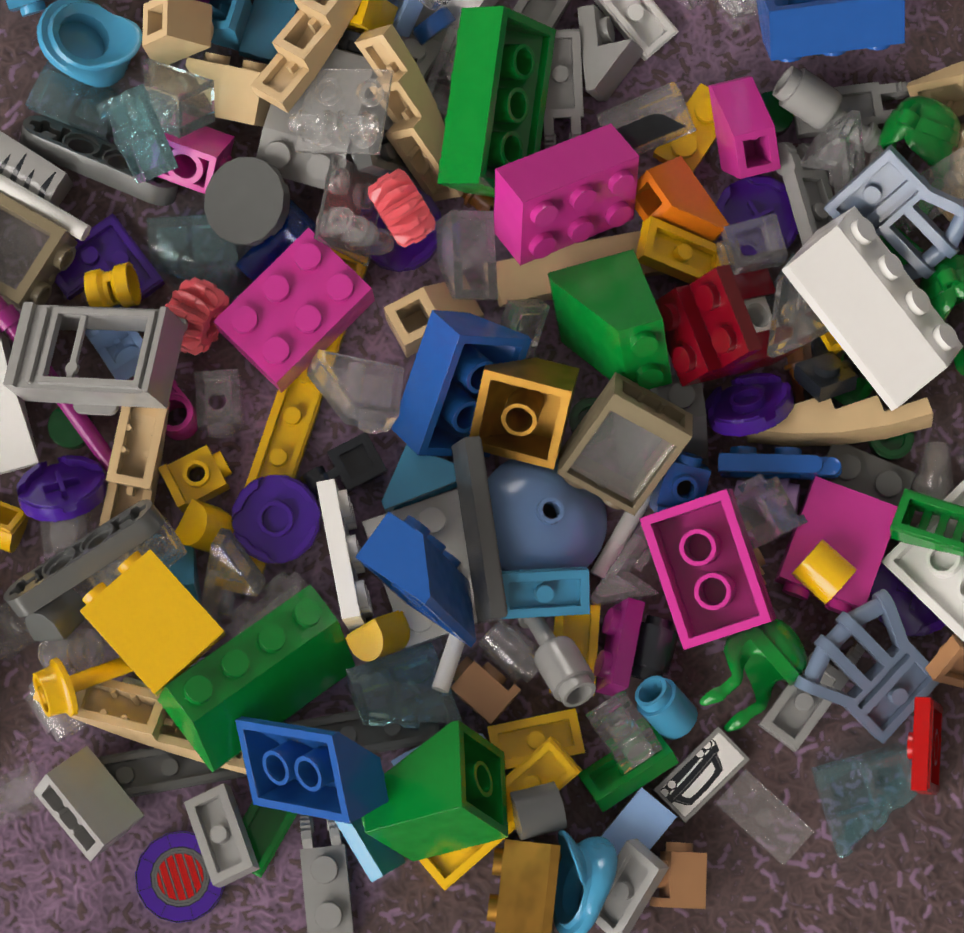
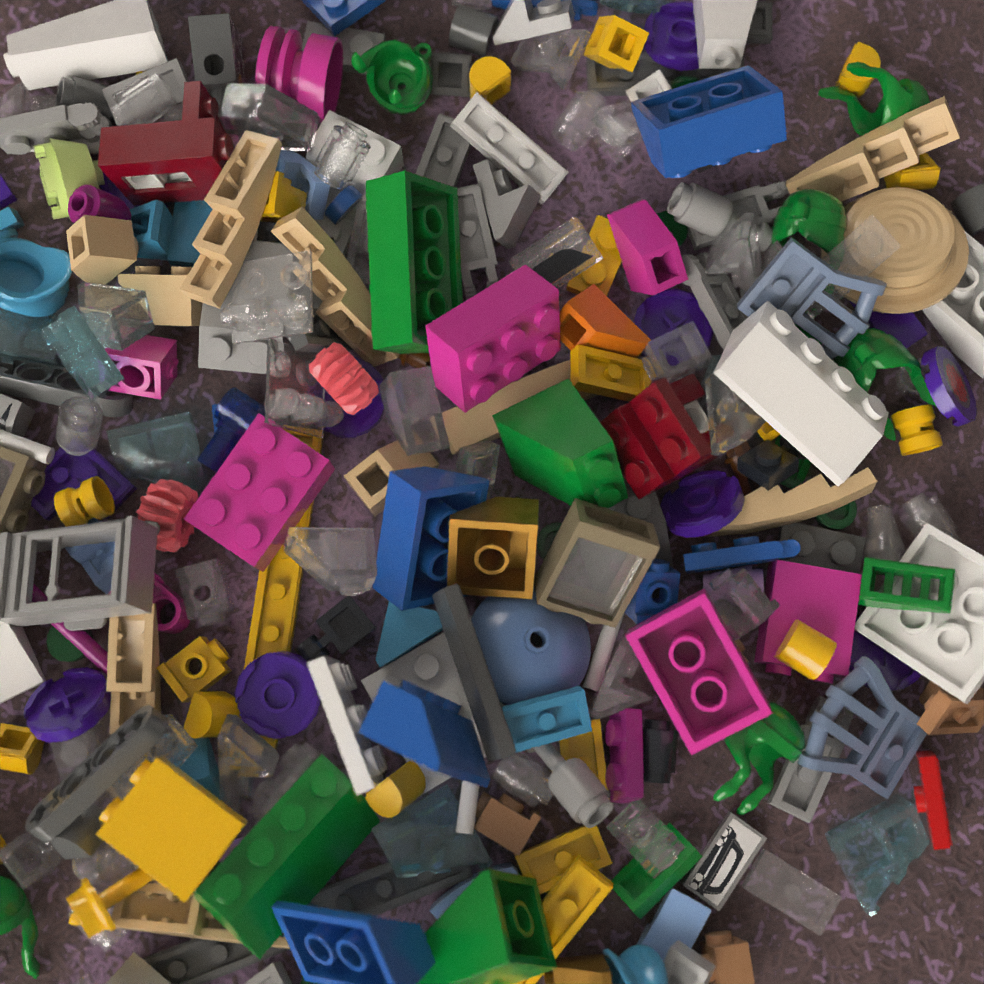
camera: 15 degrees left, 0 degrees up
(120, 207) = (79, 425): none -> clear brick
(246, 201) = (196, 398): dark grey tile -> none
(538, 811) = (580, 935): dark grey brick -> none
(665, 707) = (680, 806): dark azure brick -> none

